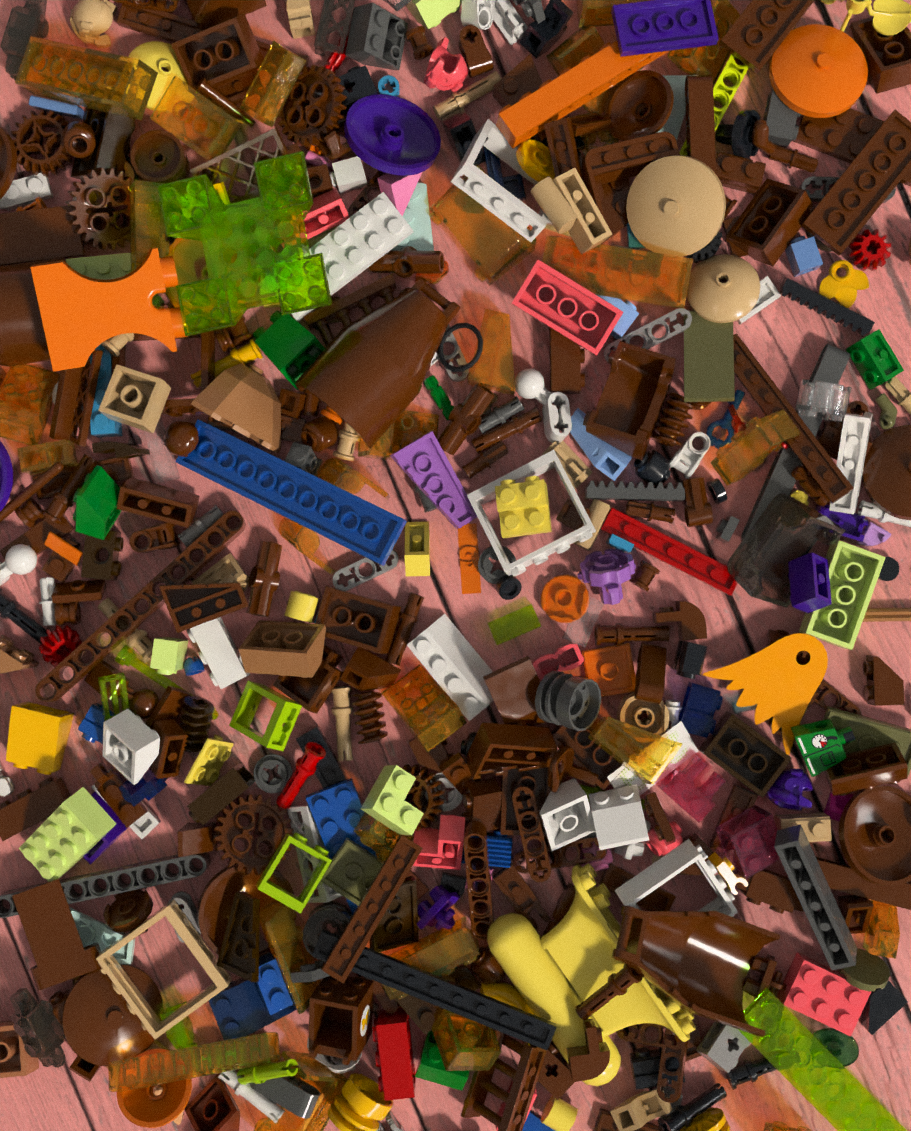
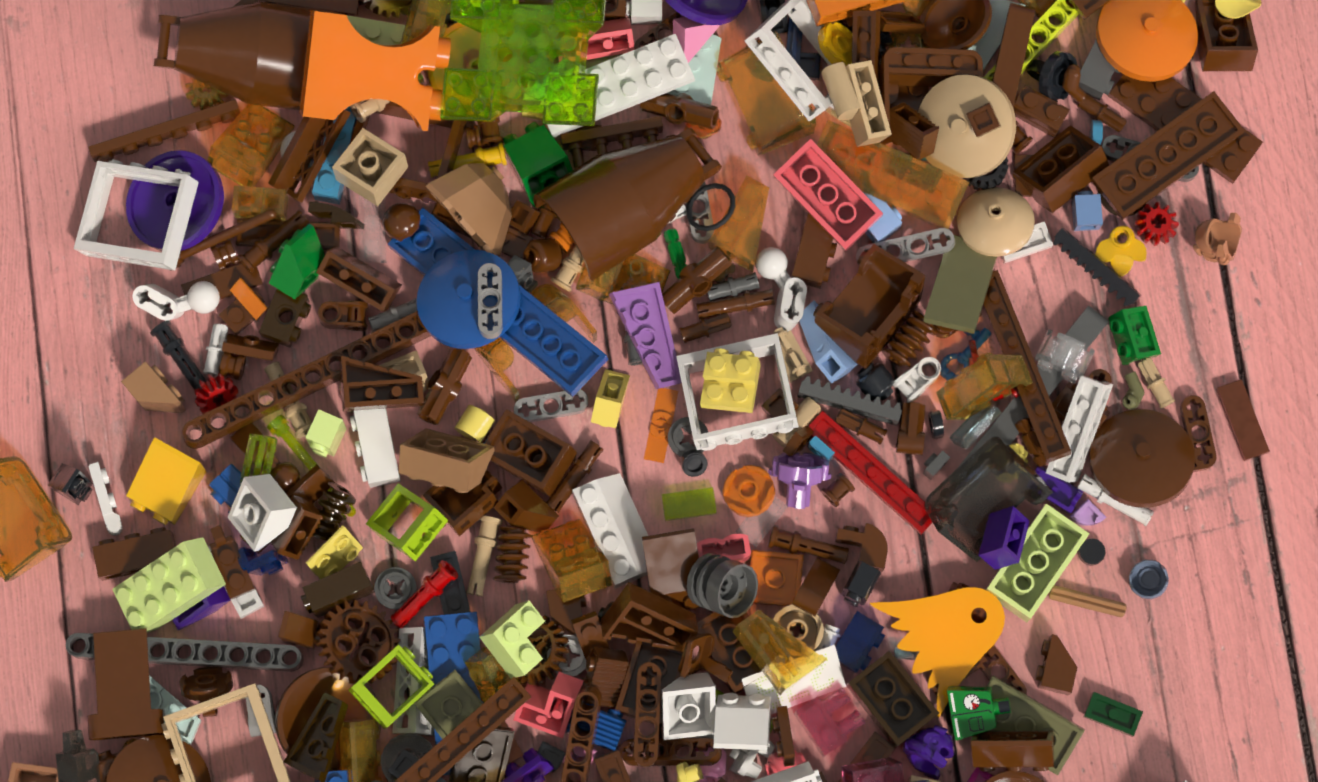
camera: 10 degrees right, 10 degrees down
(193, 666) = (345, 456): blue hinge -> none
(262, 497) = (450, 298): none -> blue dish
(270, 481) = (483, 318): none -> light grey beam
(598, 542) = (798, 441): none -> reddish brown tile
(628, 224) = (912, 131): none -> reddish brown brick
(694, 196) = (983, 120): none -> reddish brown tile
(753, 484) = (974, 427): none -> clear light blue tile
(793, 177) = (1096, 131): none -> dark azure tile

